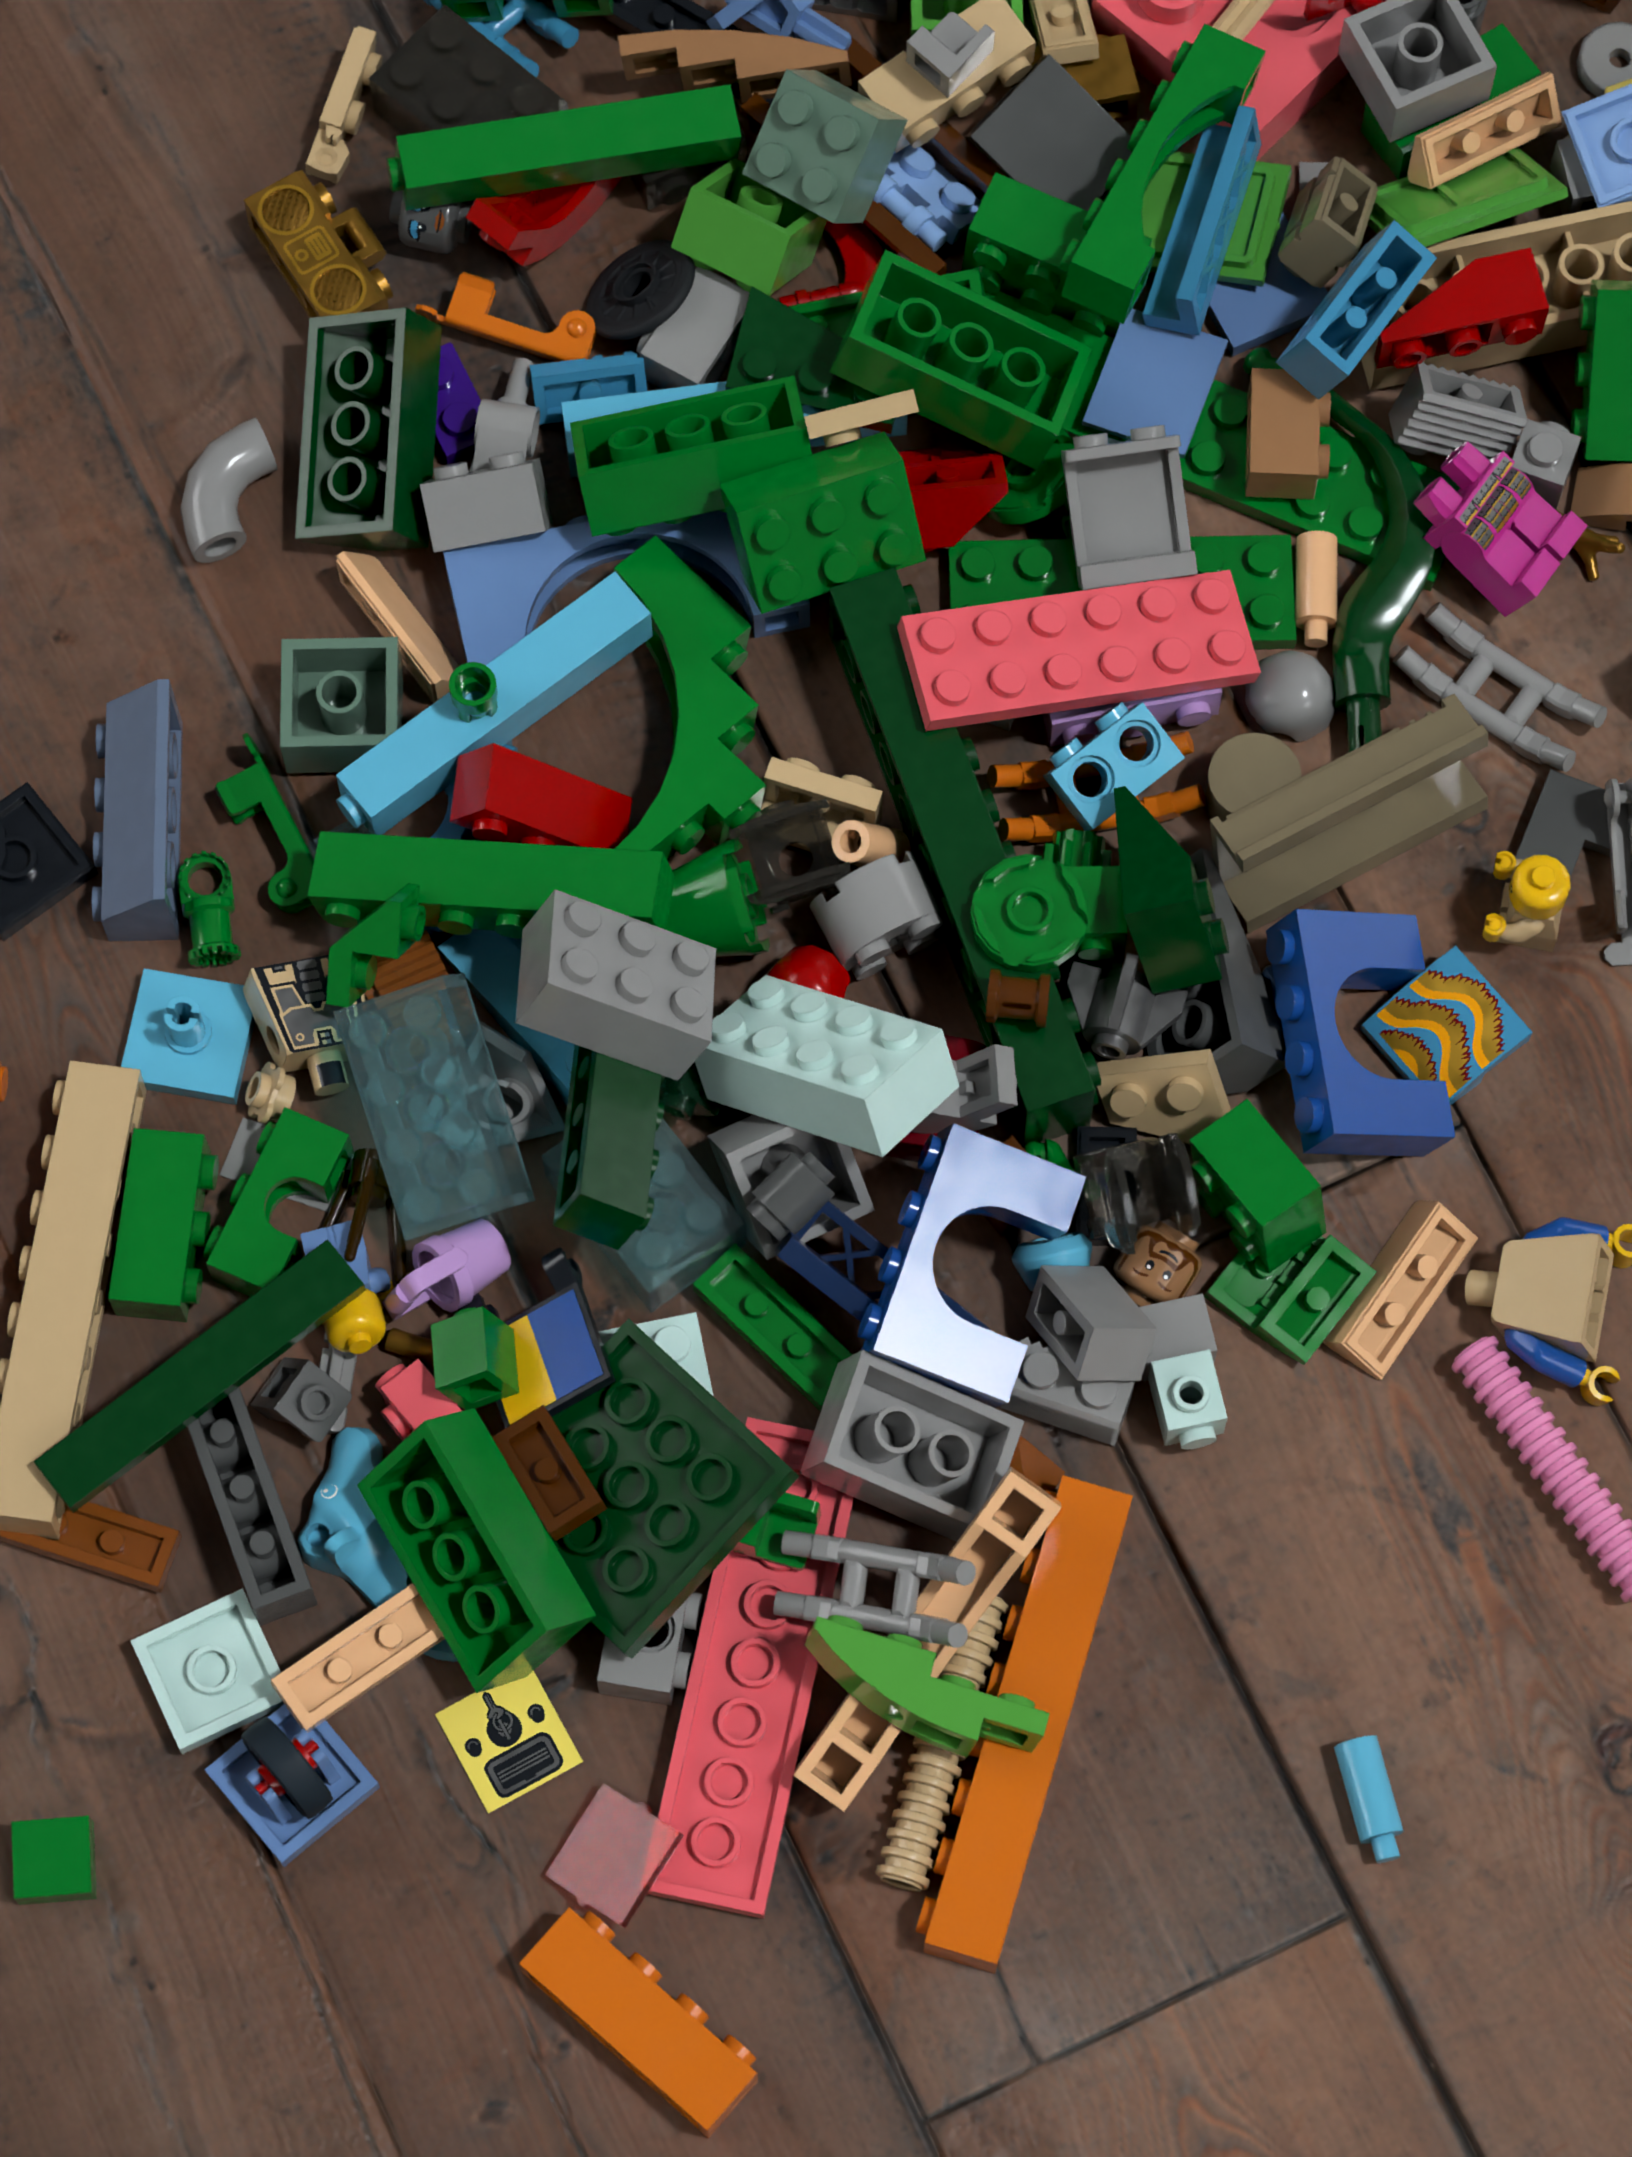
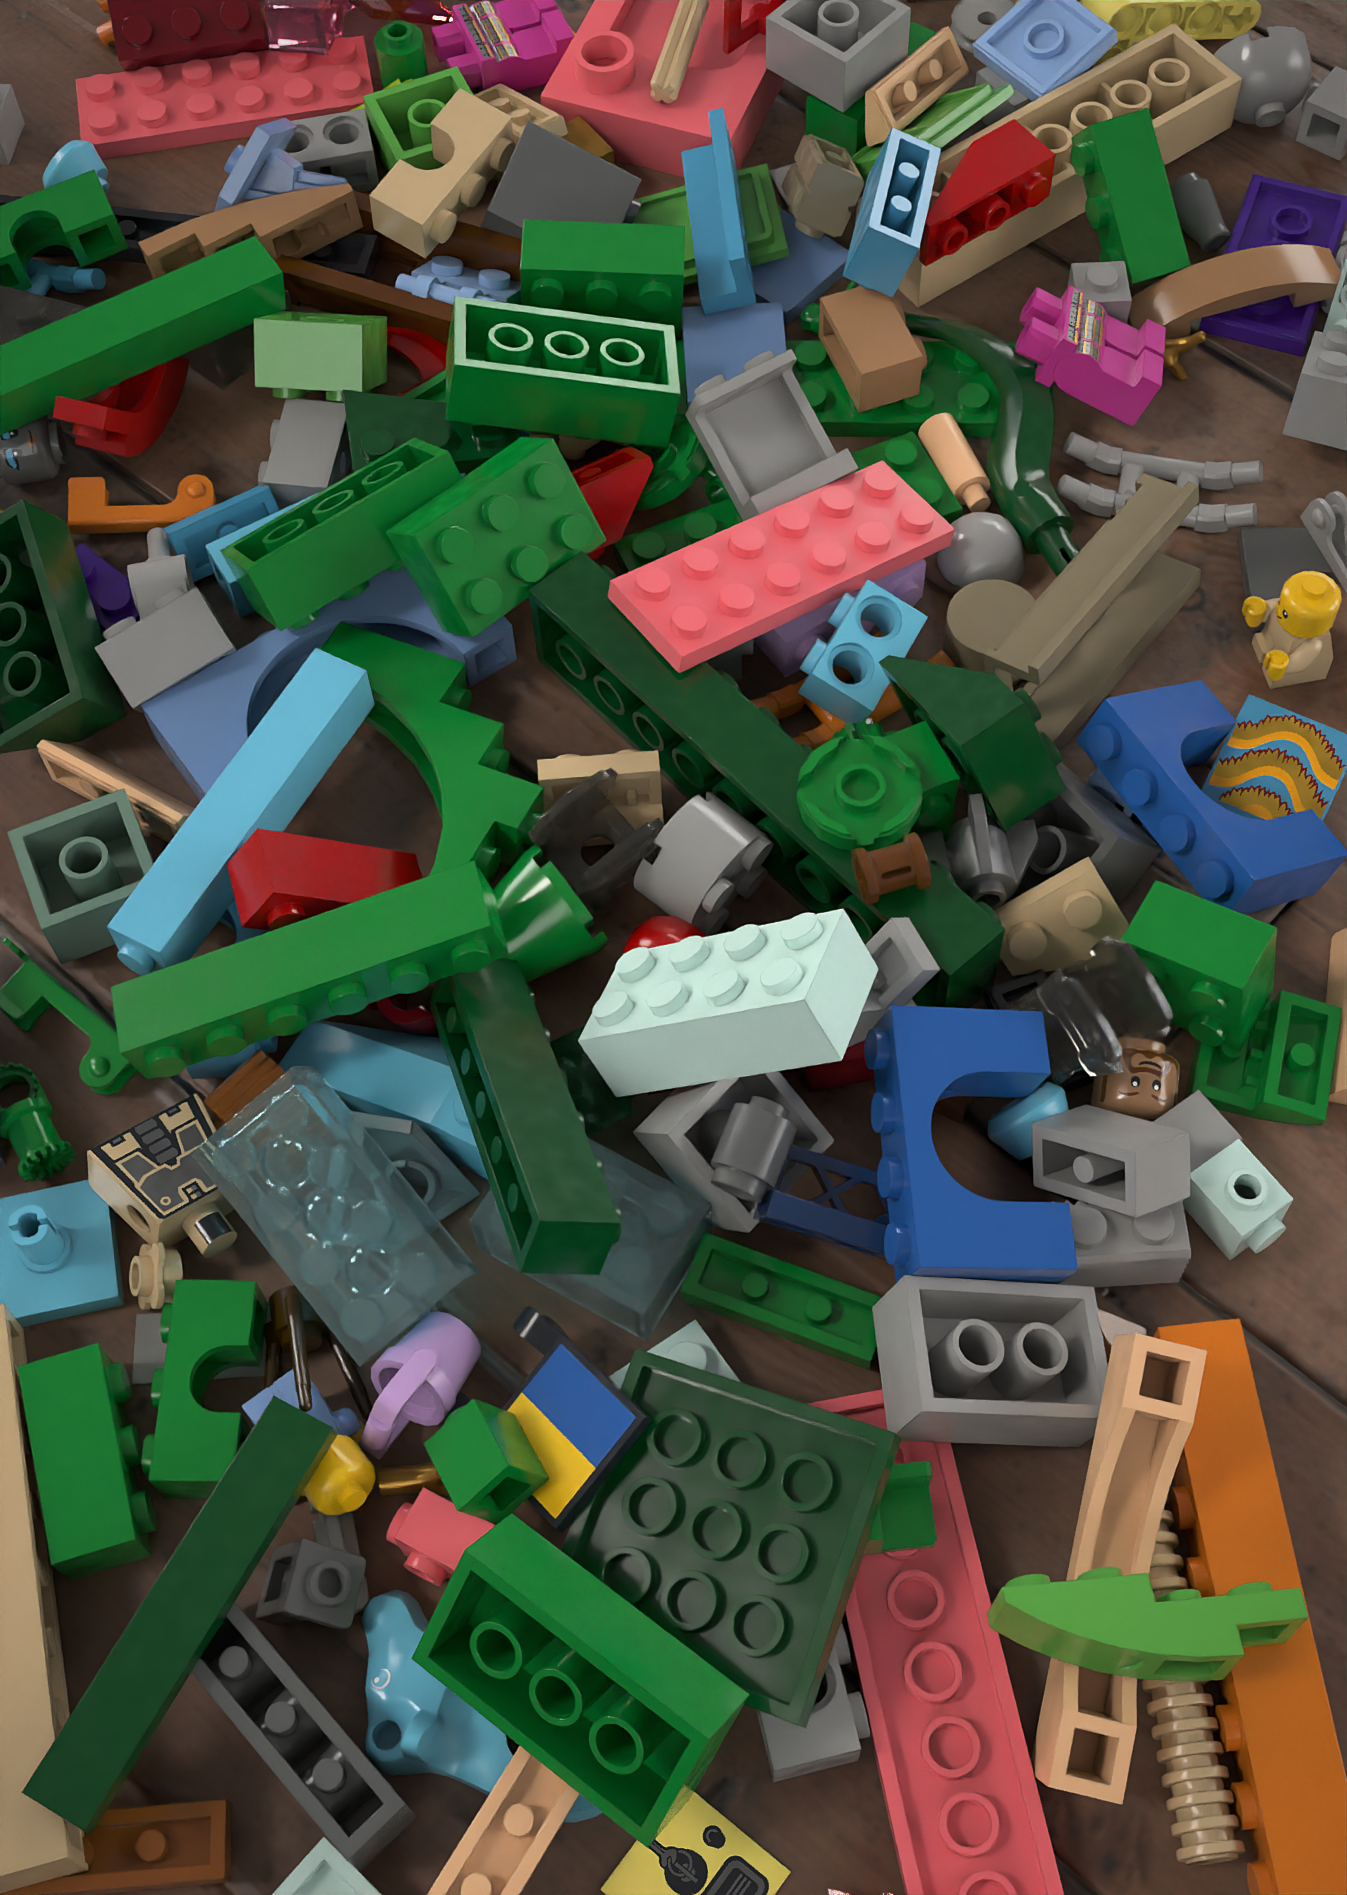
camera: 20 degrees left, 10 degrees down
(382, 933) = (215, 1049): green slope -> none
(471, 678) = (219, 793): green hose -> none
(549, 1473) = (625, 1552): reddish brown plate -> none
(616, 985) = (481, 1005): light grey brick -> none
(627, 317) = (243, 439): black wheel -> none
(824, 146) = (361, 253): sand green brick -> none
(843, 423) = (494, 428): tan wing -> none
(857, 1559) = (1065, 1490): light grey piece -> none
(866, 842) = (658, 798): light nougat cylinder -> none
(949, 52) = (440, 143): light grey panel -> none
(1112, 259) = (658, 225): green arch -> none
(1446, 409) = (997, 282): light grey brick -> none

